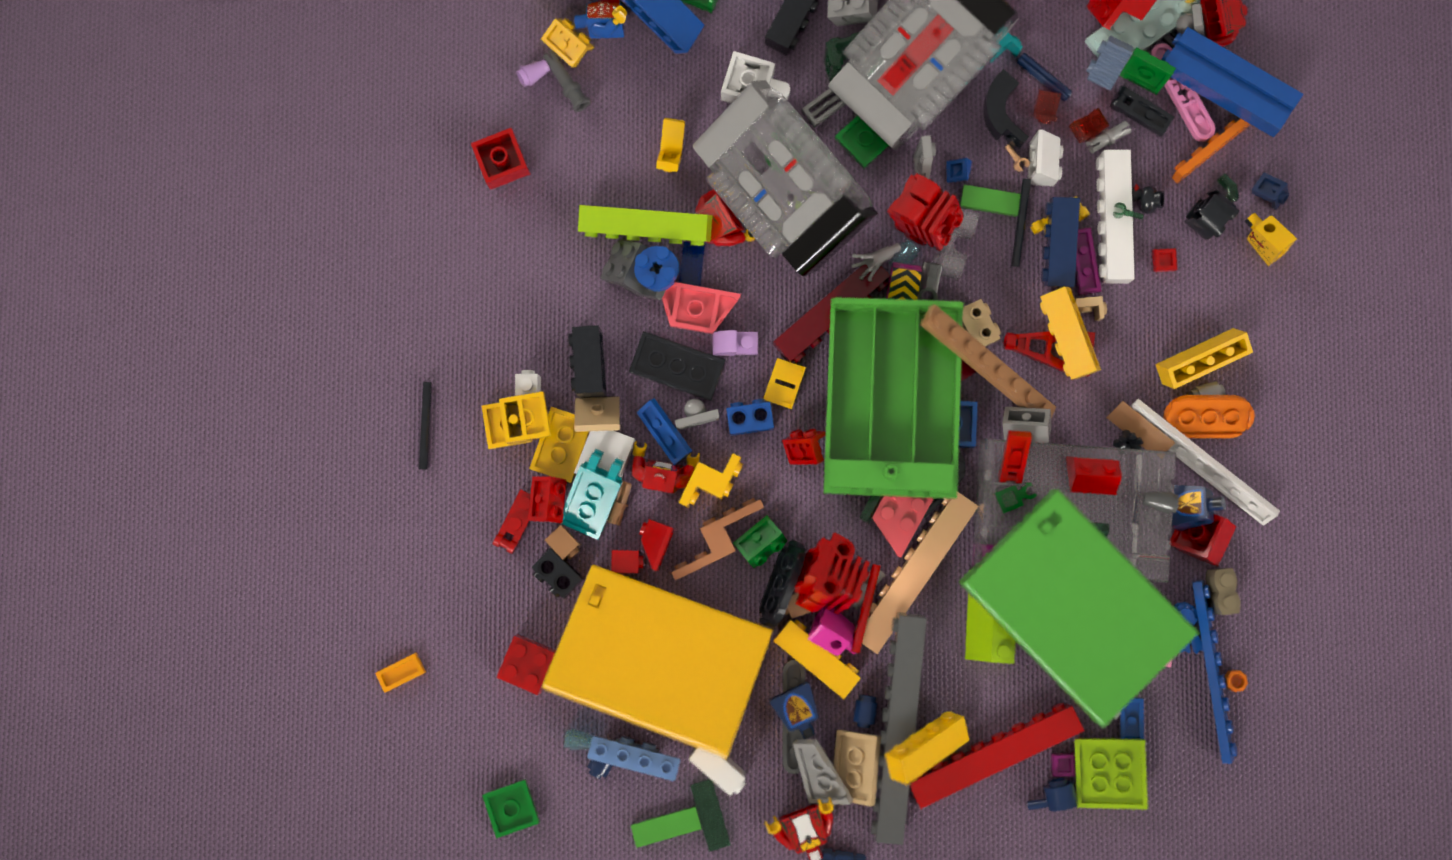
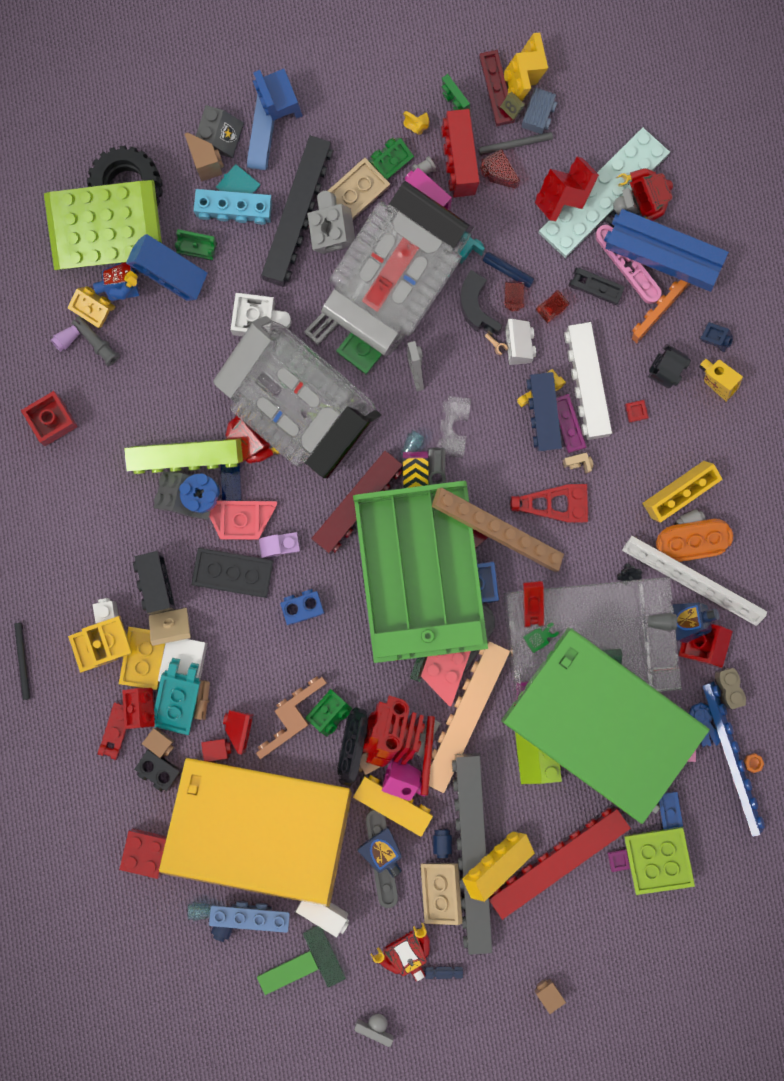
camera: 15 degrees left, 0 degrees up
(400, 672) = (36, 879): light orange tile -> none
(511, 808) = (151, 980): green plate -> none
(661, 475) = (234, 670): red torso -> none
(664, 431) = (230, 632): blue plate -> none
(671, 145) = (196, 382): yellow bracket -> none
(696, 415) = (255, 612): light grey tile -> none
(711, 481) = (277, 669): yellow bracket -> none
(789, 373) = (326, 582): yellow piece -> none
(804, 447) = (351, 625): red bracket -> none
(819, 774) = (410, 905): light grey wing -> none
(834, 54) = (322, 282): clear green bracket -> none
(876, 259) = (387, 453): light grey piece -> none
(926, 212) = (423, 406): red piece -> none
(958, 170) = (447, 362): blue slope -> none
(981, 323) = (482, 496): tan brick -> none
(990, 200) = (482, 384): bright green tile -> none
(1021, 221) = (508, 399): black bar -> none
(1029, 420) = (541, 570): light grey brick -> none
(1059, 796) = (619, 888): dark blue piece -> none
(1070, 333) = (564, 489): yellow brick -> none
(1093, 475) = (602, 608): red slope -> none
(1108, 137) = (571, 313): light grey pin -> none
(1110, 62) = (561, 249): sand blue brick -> none
(1126, 212) = (596, 377): clear green hand -> none
(1128, 419) = (627, 554): medium nougat sticker -> none
(1147, 71) = (594, 251): green plate -> none
(1150, 198) = (615, 361): black animal -> none
(1230, 186) = (683, 340): clear green arm -> none

